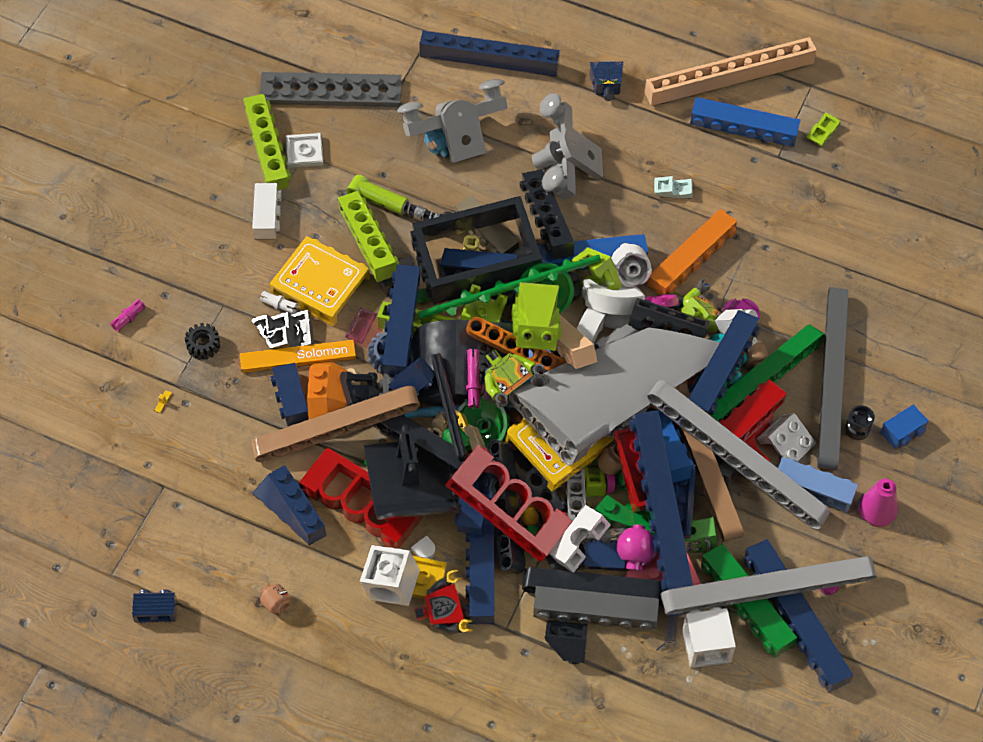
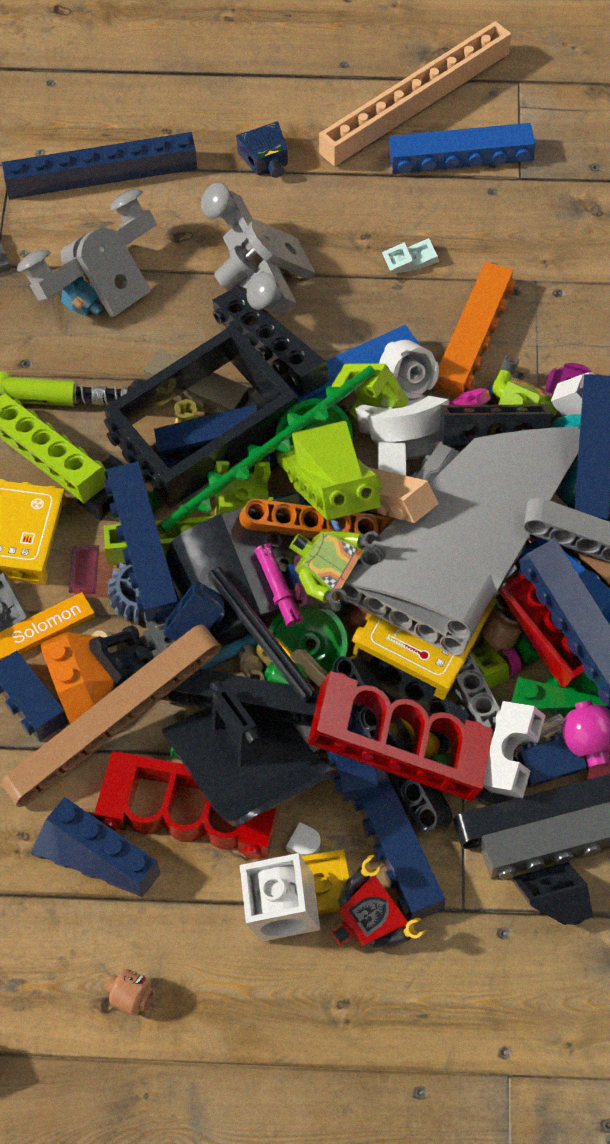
camera: 20 degrees left, 0 degrees up
(824, 129) = (560, 127): lime slope -> none

